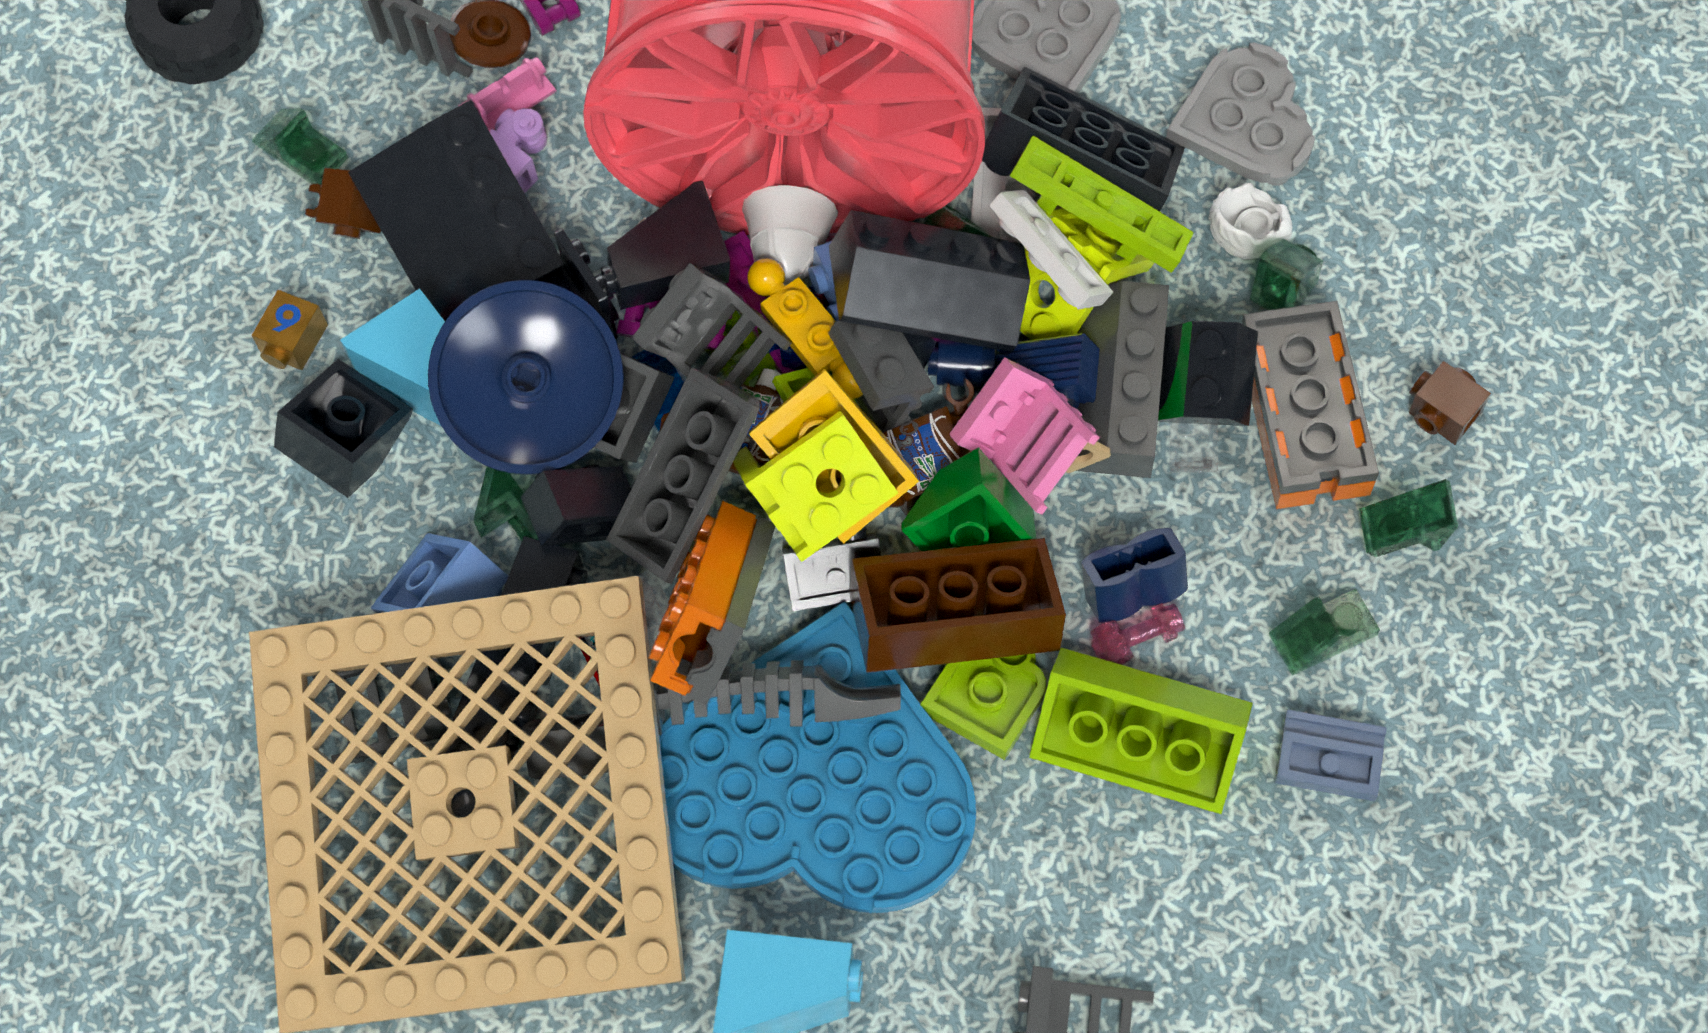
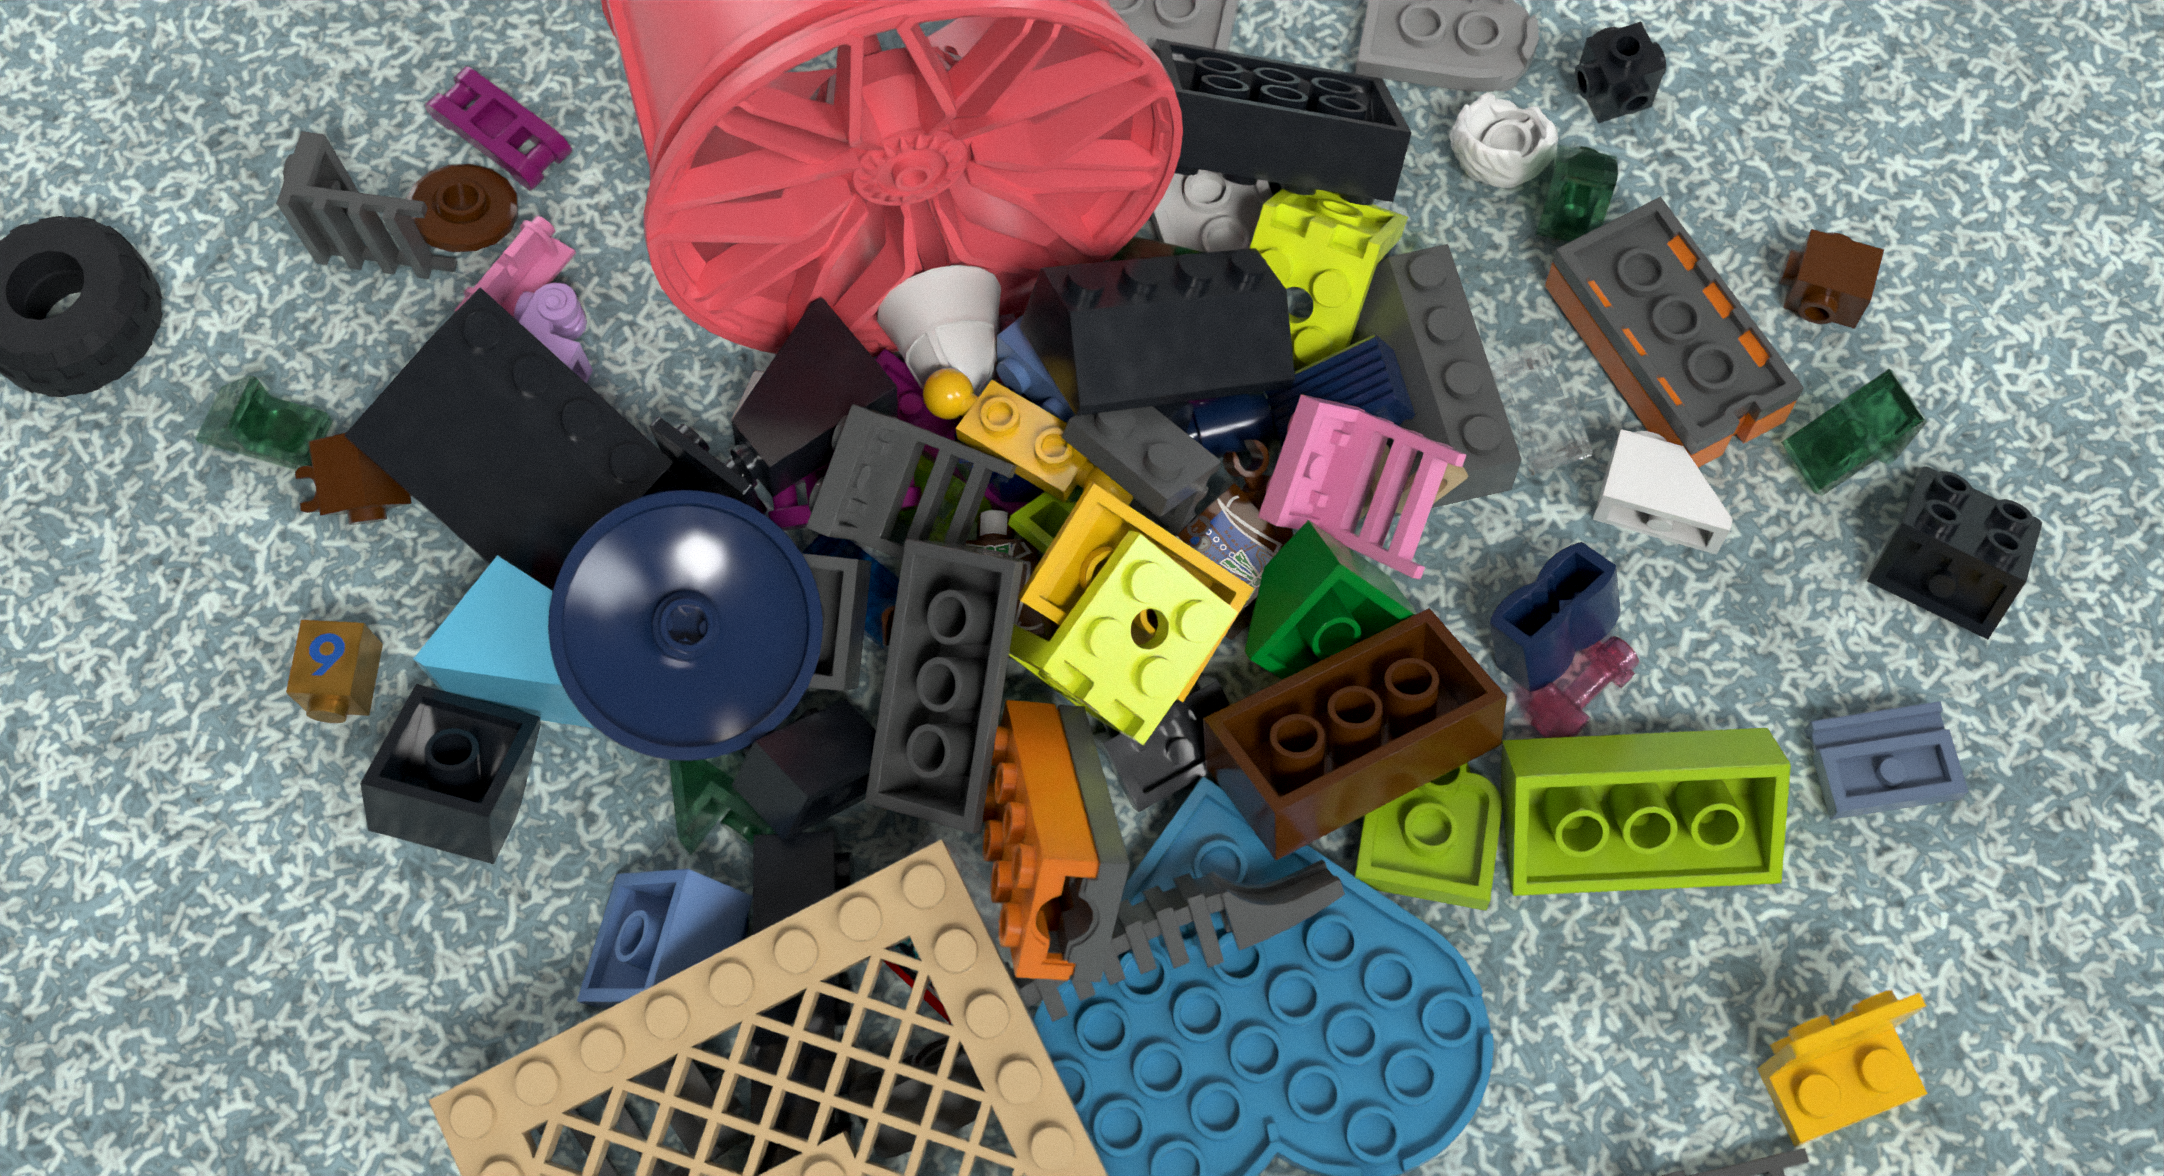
camera: 20 degrees left, 0 degrees up
(1050, 249) = (1296, 243): white plate -> none
(1102, 205) = (1336, 168): lime hinge -> none
(1203, 946) = (1845, 1071): none -> yellow bracket
(1208, 373) = (1542, 334): black slope -> none
(1249, 513) = (1661, 493): none -> white slope
(1323, 631) = (1805, 608): clear green slope -> none
(1358, 198) = (1620, 71): none -> black brick
(1451, 627) = (1958, 552): none -> black bracket

